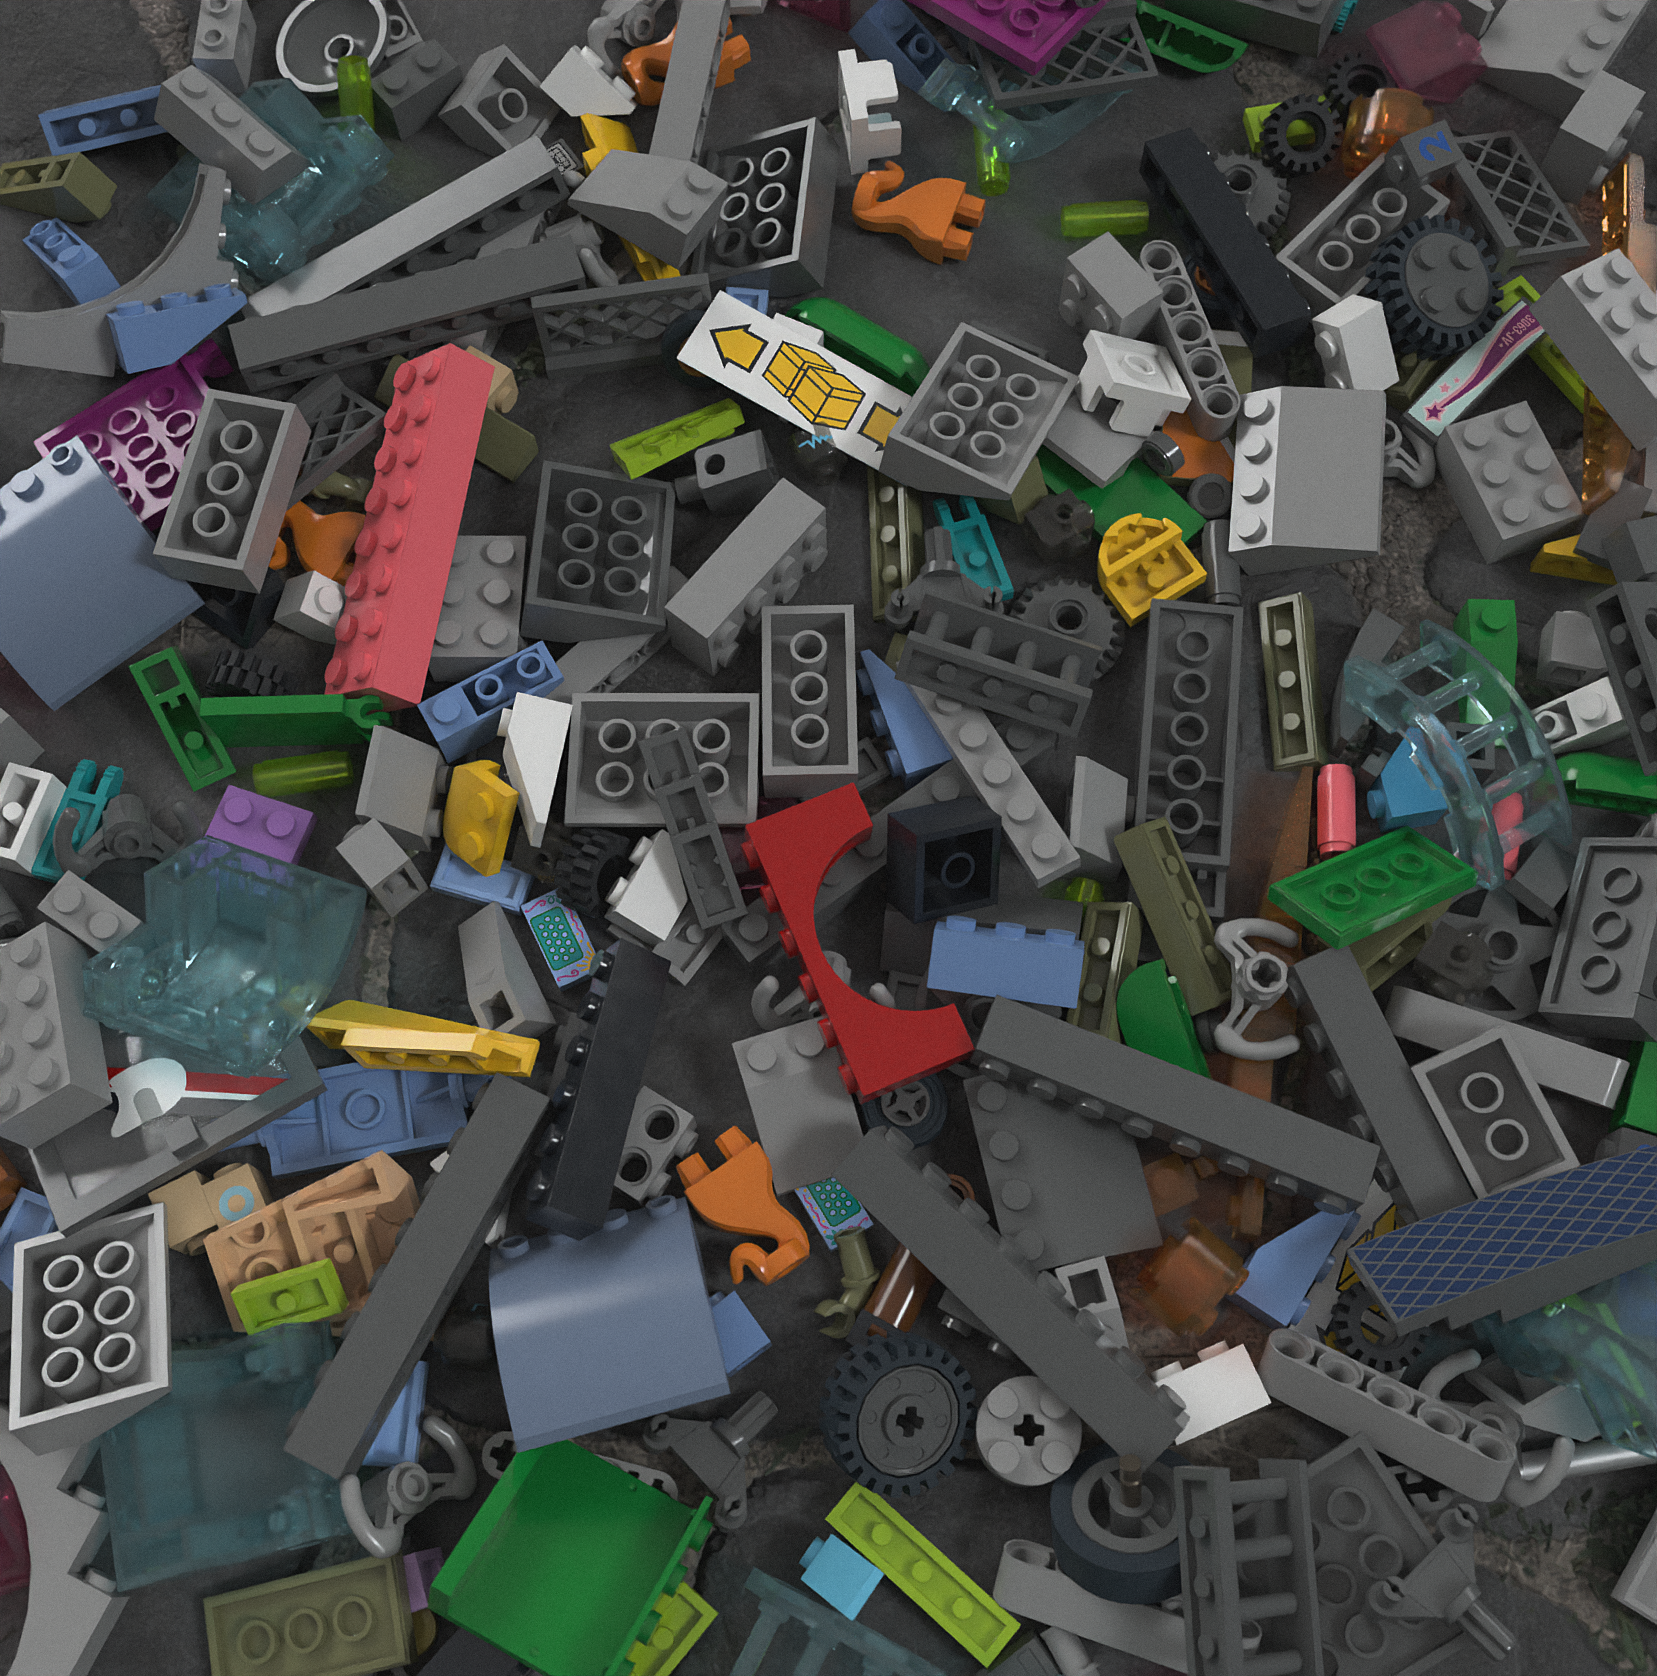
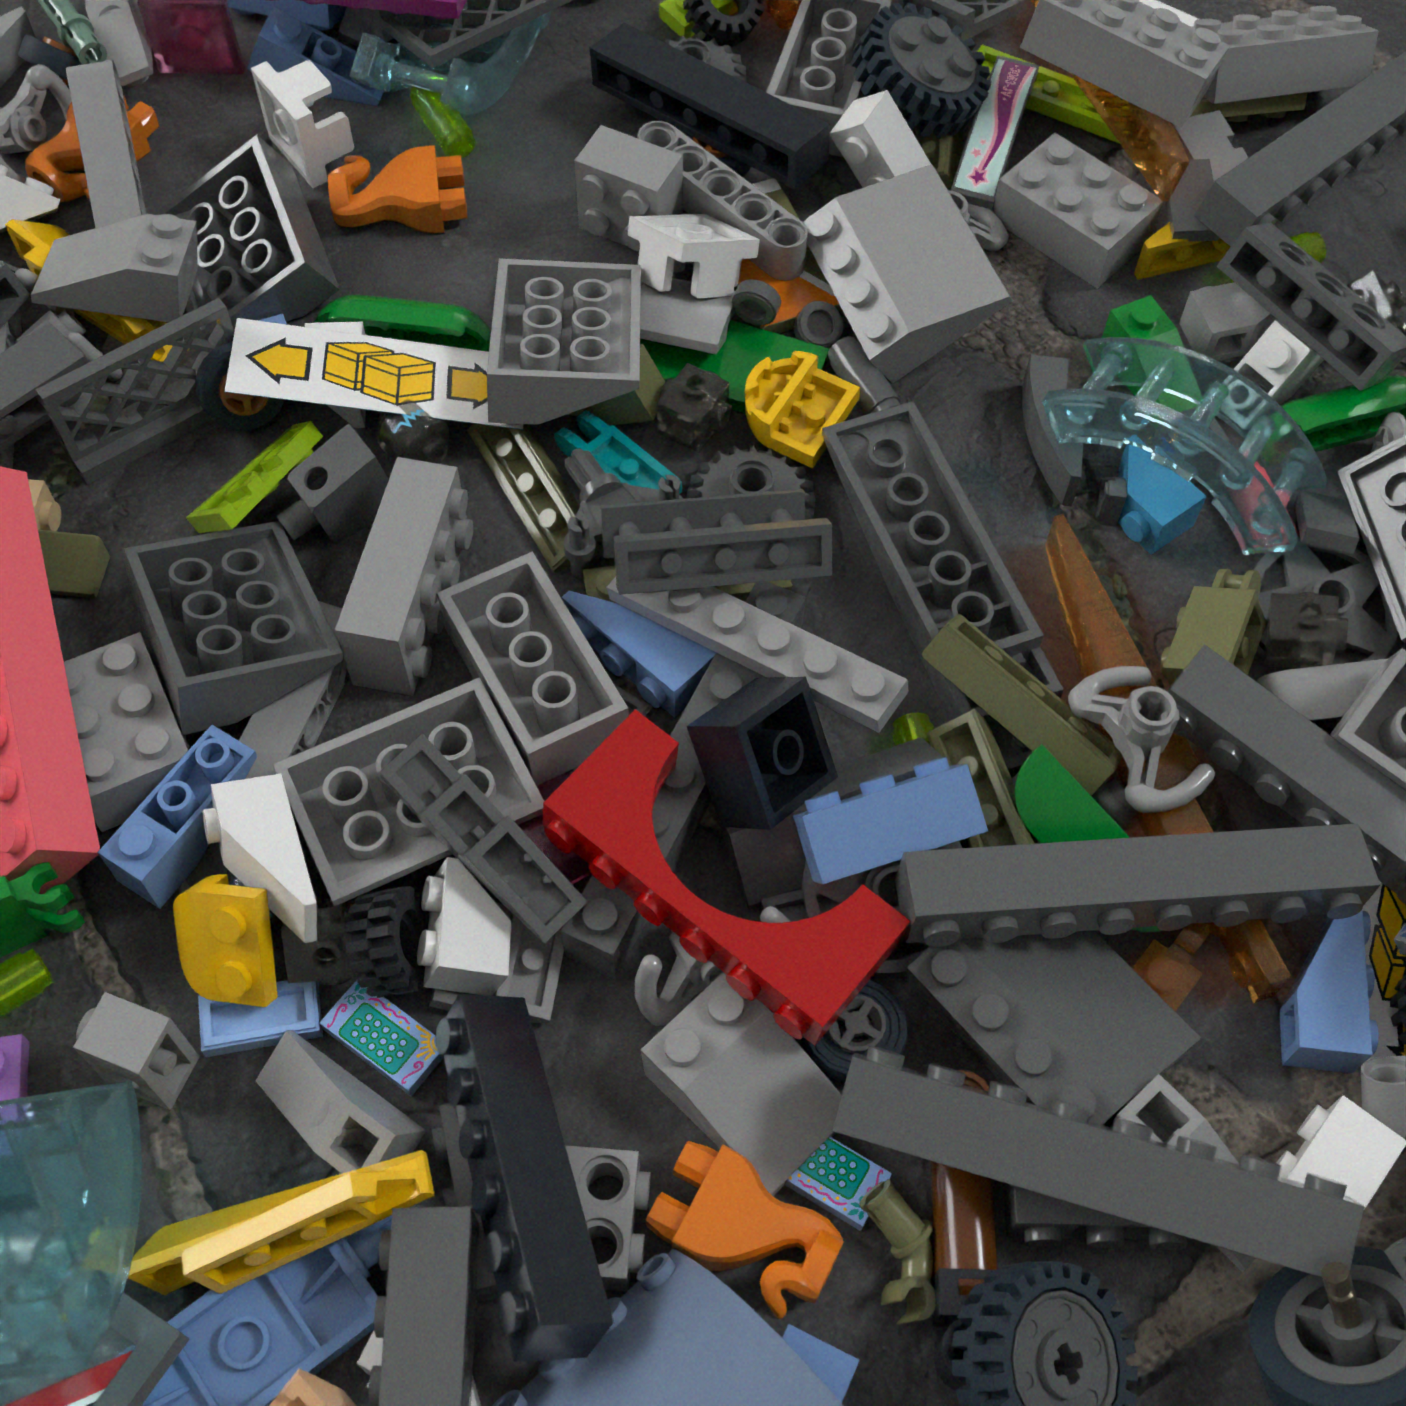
camera: 30 degrees left, 10 degrees down
(404, 788) = (122, 949): light grey slope -> none
(1048, 1453) = (1212, 1290): light grey brick -> none
(1094, 815) = (883, 635): light grey slope -> none
(1097, 218) = (570, 137): clear neon green piece -> none
(1189, 1279) = (1250, 1058): clear orange brick -> none
(1293, 683) = (990, 458): olive slope -> none
(1336, 810) = (1105, 552): coral piece -> none
(1372, 886) = (1187, 593): green tile -> none

